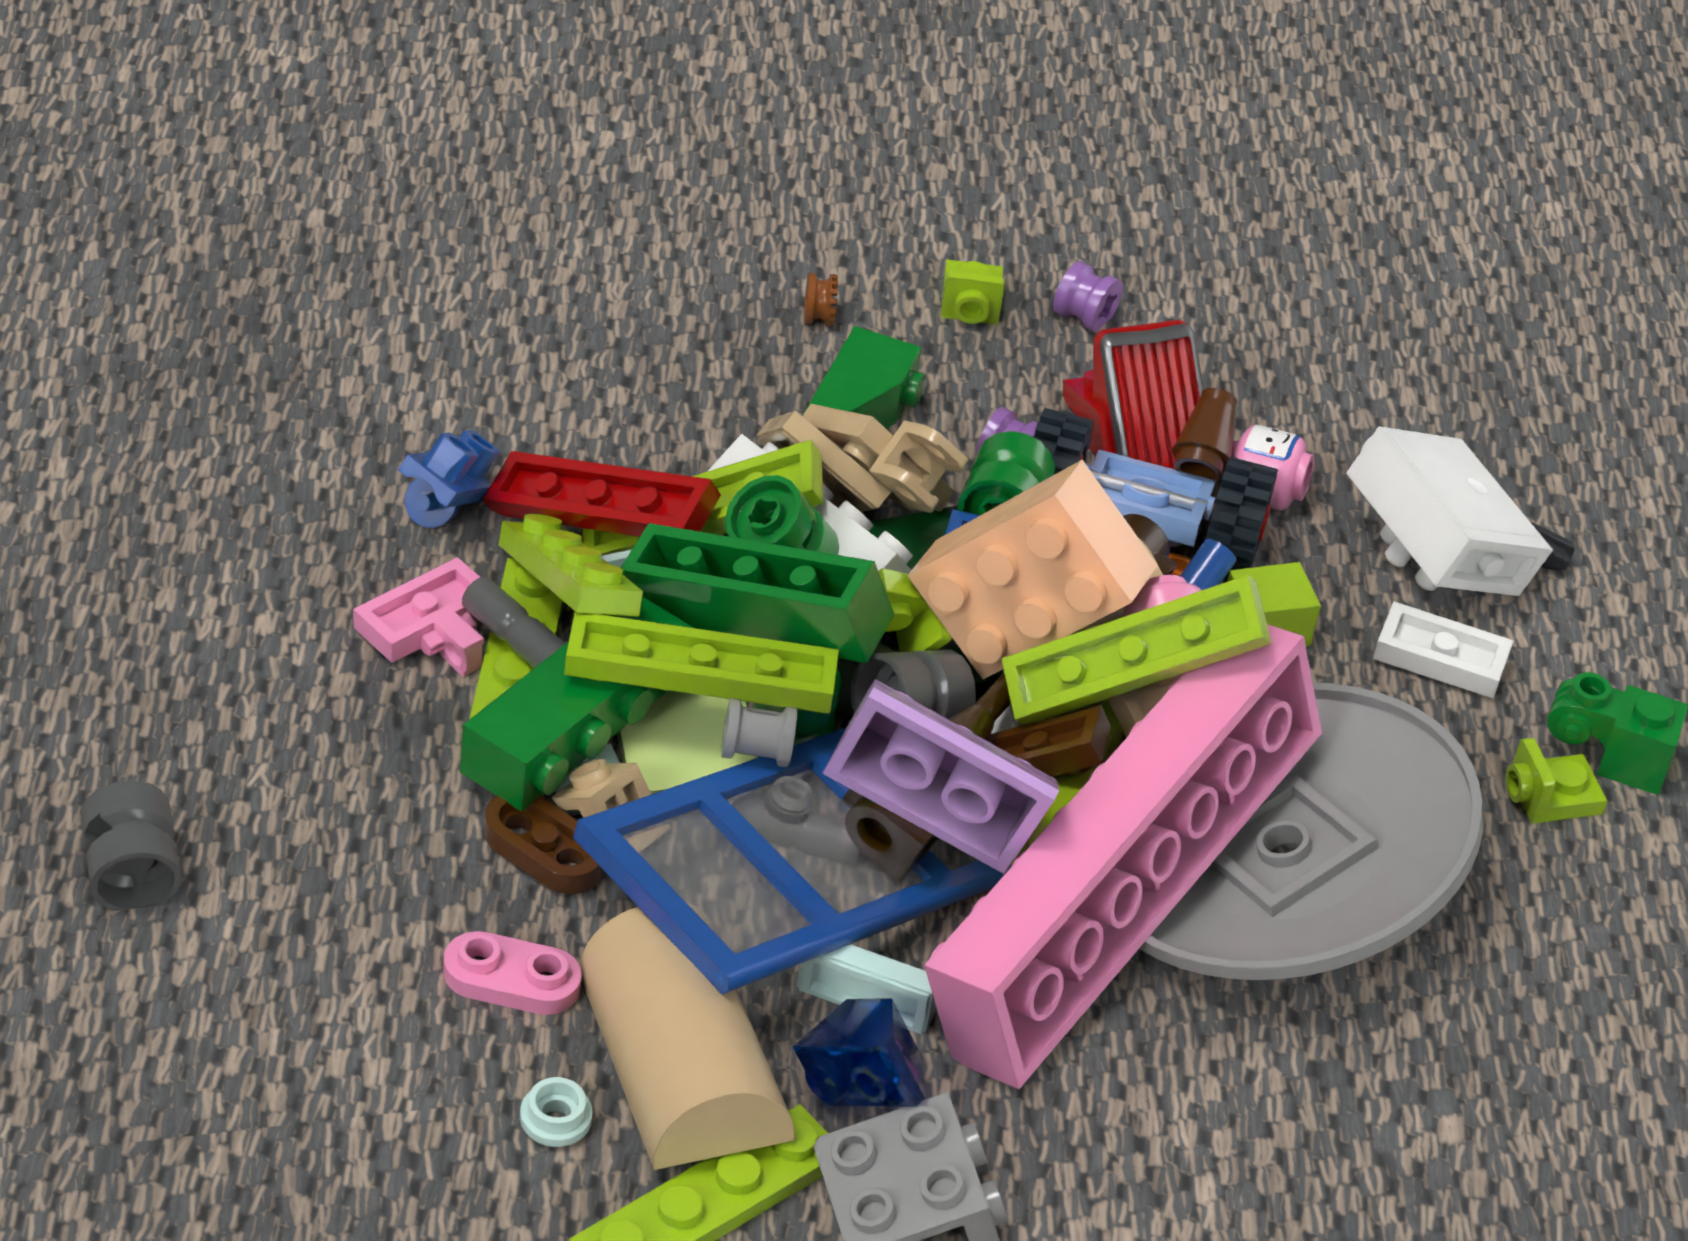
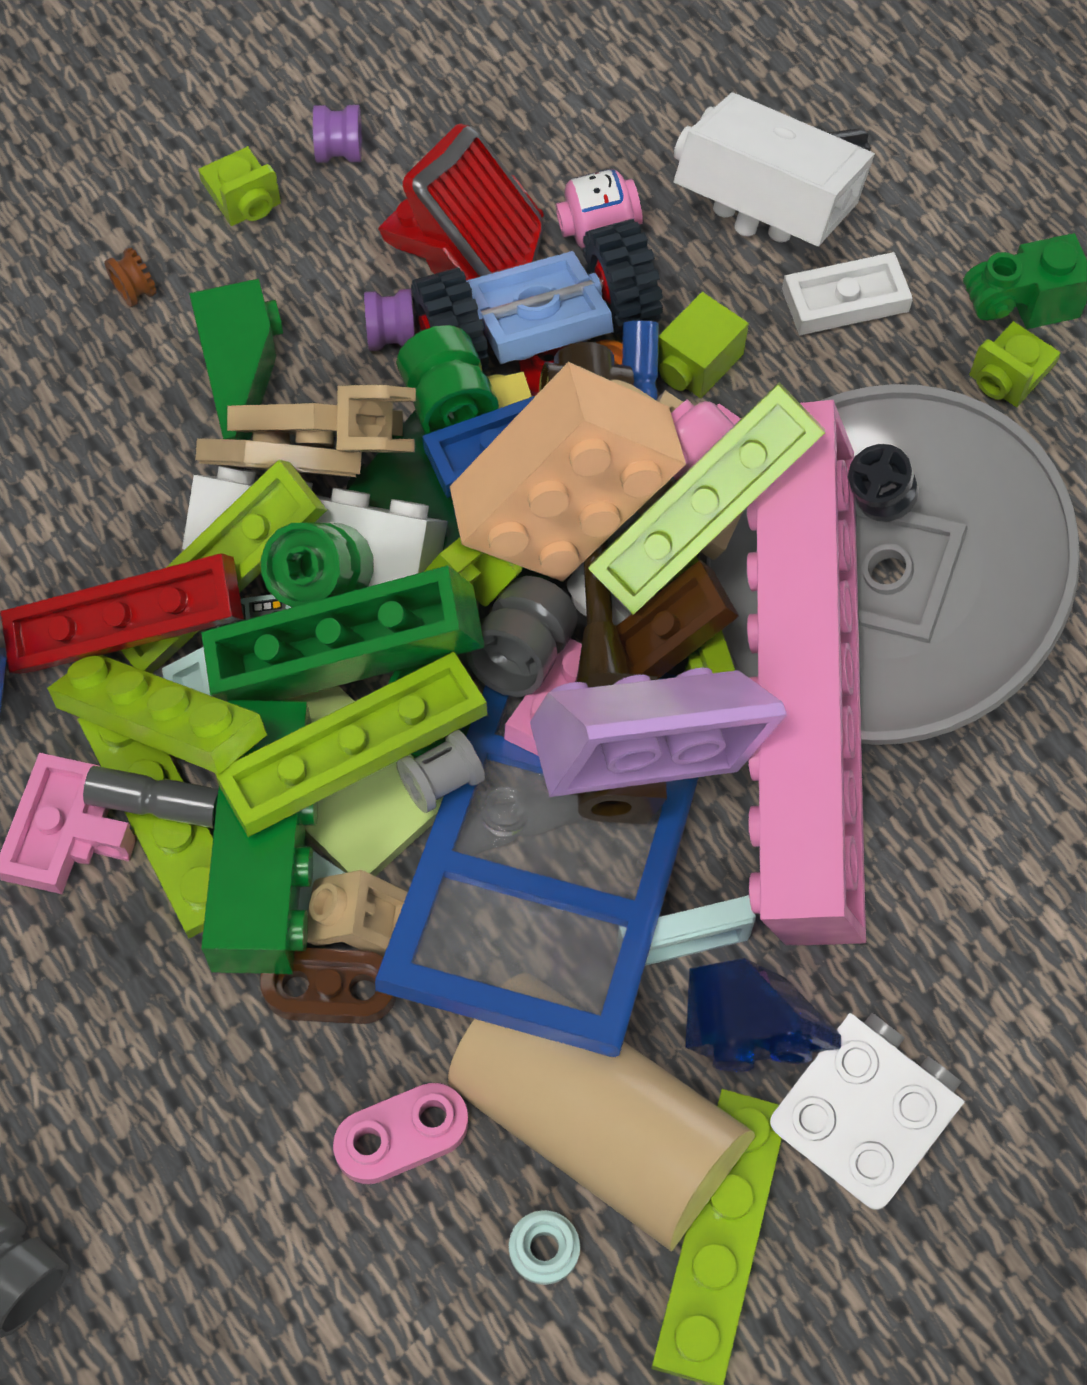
camera: 30 degrees left, 20 degrees up
(1207, 436) = (545, 218): reddish brown cone -> none
(1320, 755) = (877, 469): none -> black wheel

